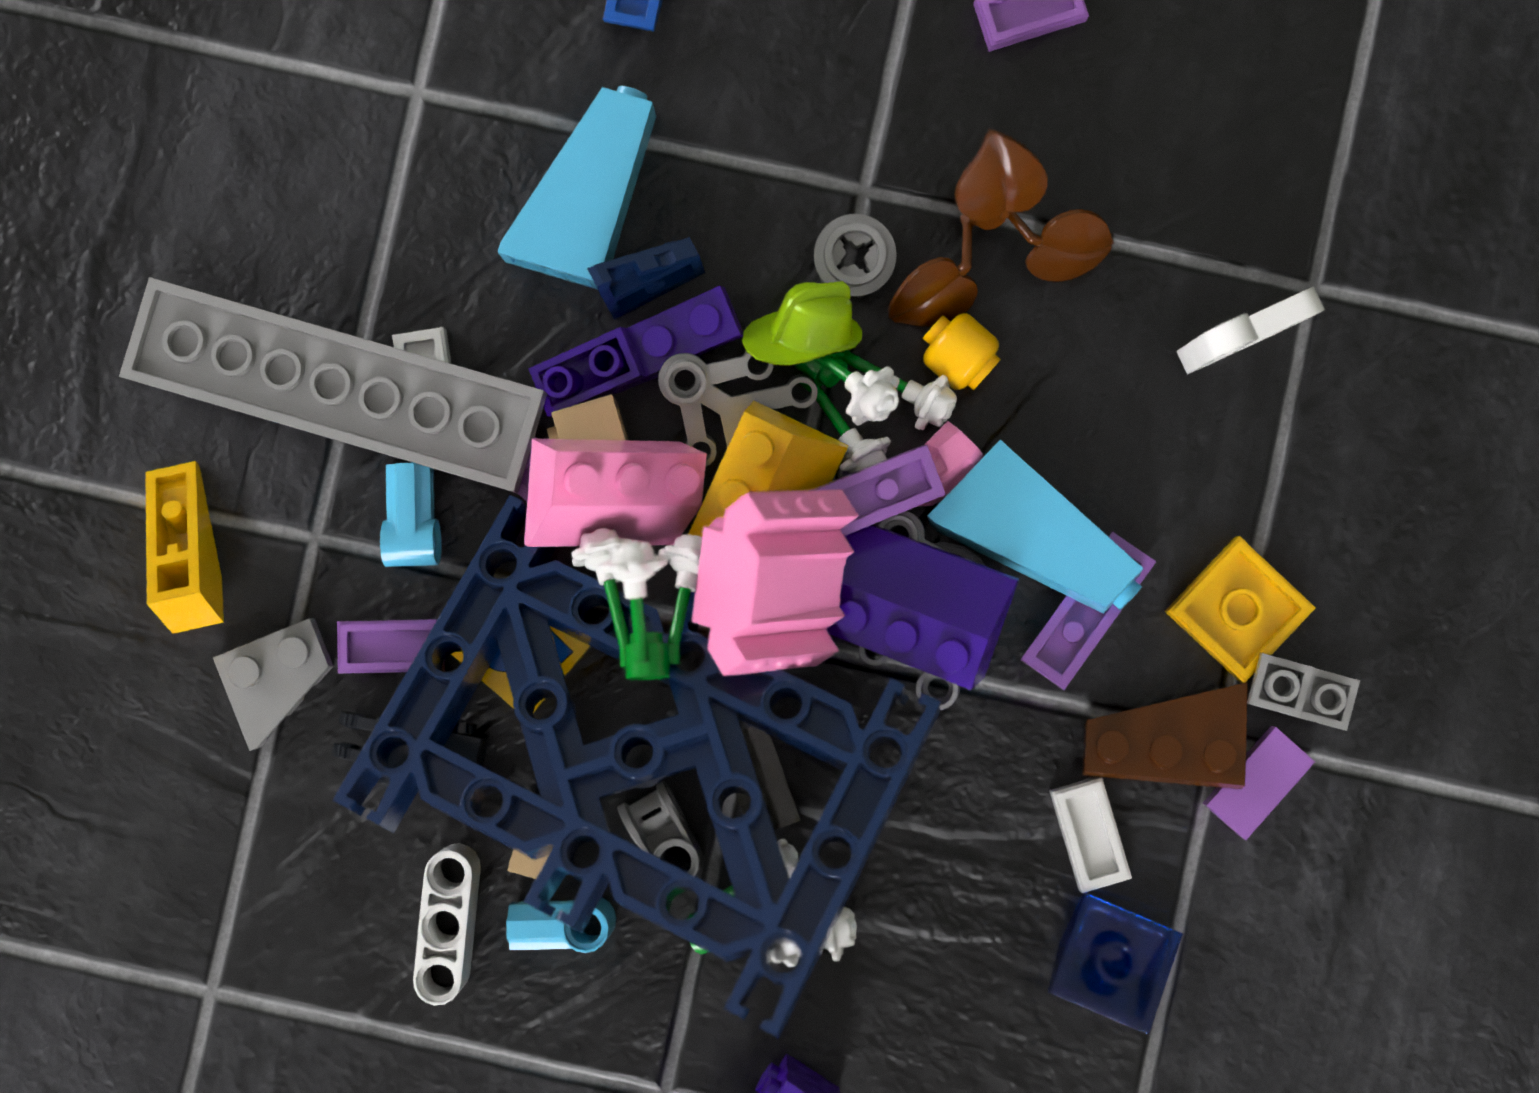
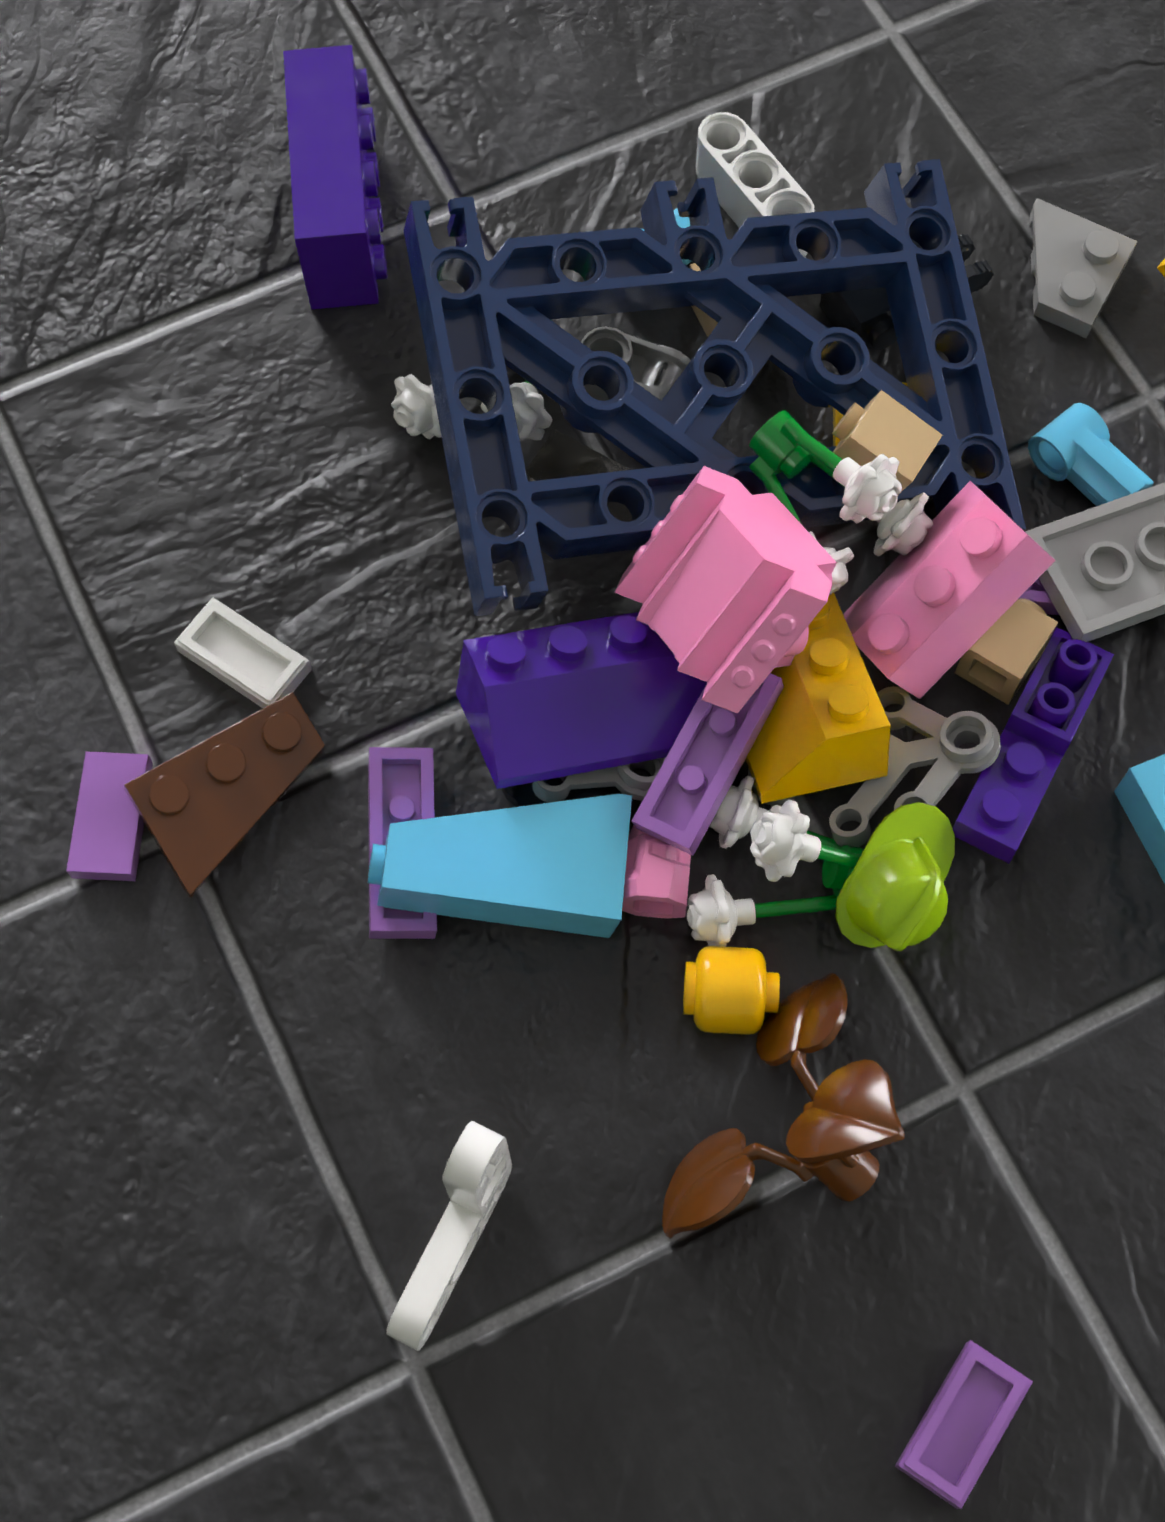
camera: 135 degrees right, 20 degrees down
(380, 645) = (1019, 349): medium lavender tile -> none
(574, 608) = (887, 430): none -> tan brick
(645, 275) = (1092, 812): dark blue wing -> none
(857, 231) = (939, 992): light grey gear -> none
(1114, 963) = (136, 556): clear blue slope -> none
(1240, 609) = (248, 964): yellow tile -> none
(1303, 691) = (128, 930): light grey slope -> none

